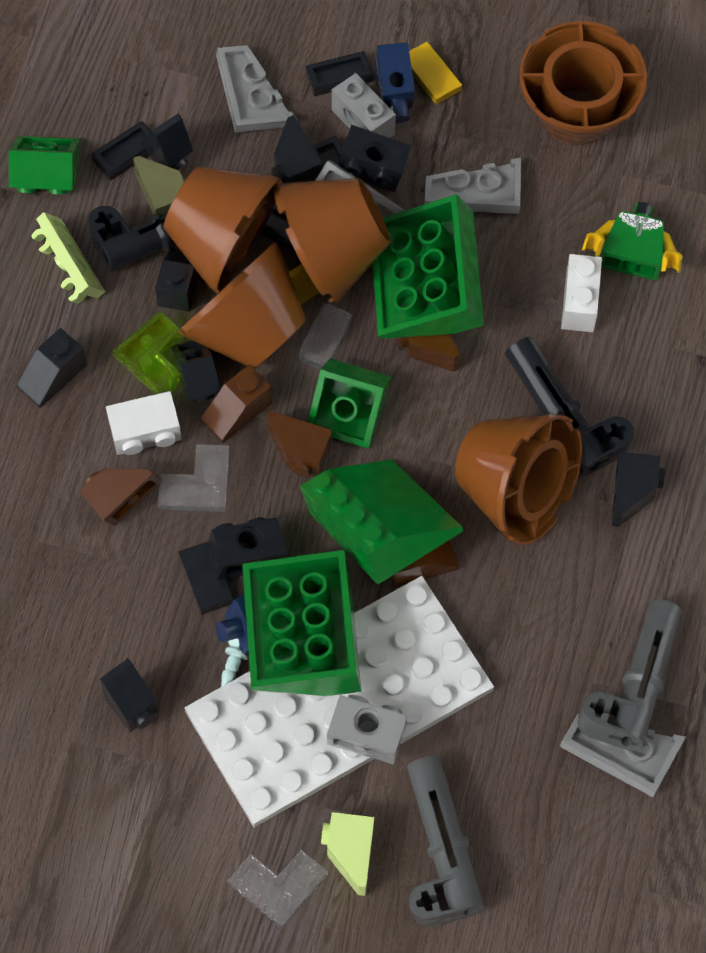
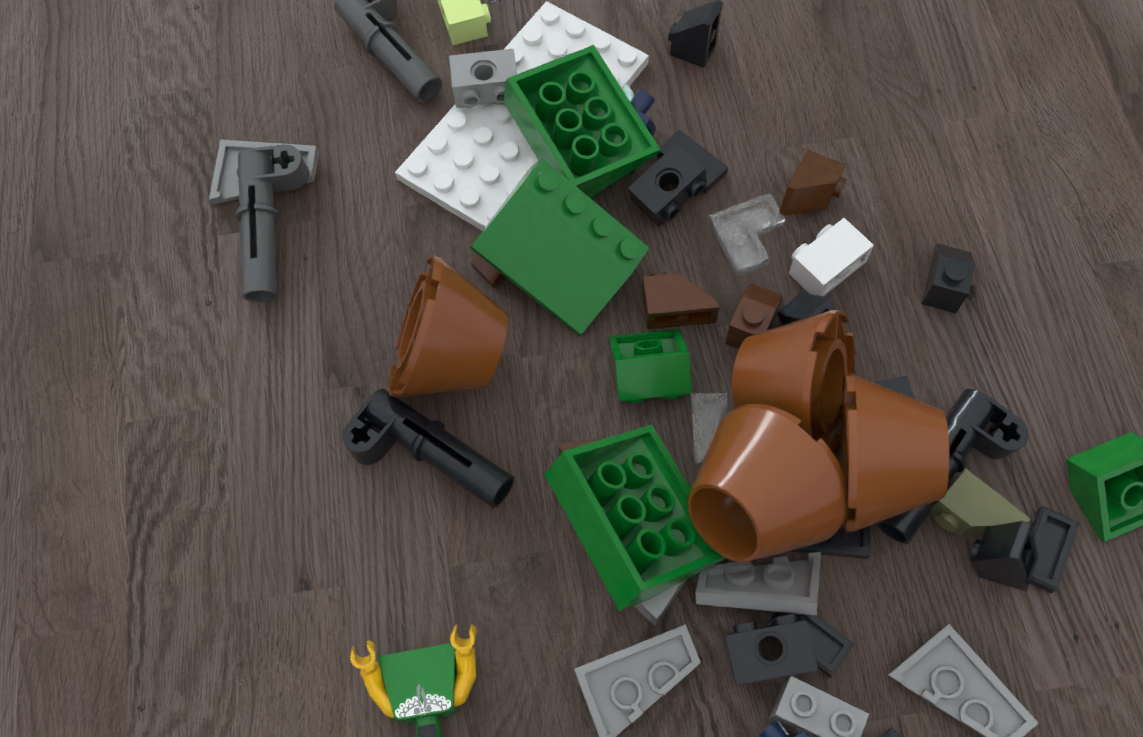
camera: 160 degrees right, 0 degrees up
(67, 258) = (1016, 391): yellowish green plate -> none
(143, 354) = (877, 327): clear neon green brick -> none
(294, 155) = (862, 618): black slope -> none
(581, 293) = (460, 589): white brick -> none
(635, 484) = (326, 400): black slope -> none

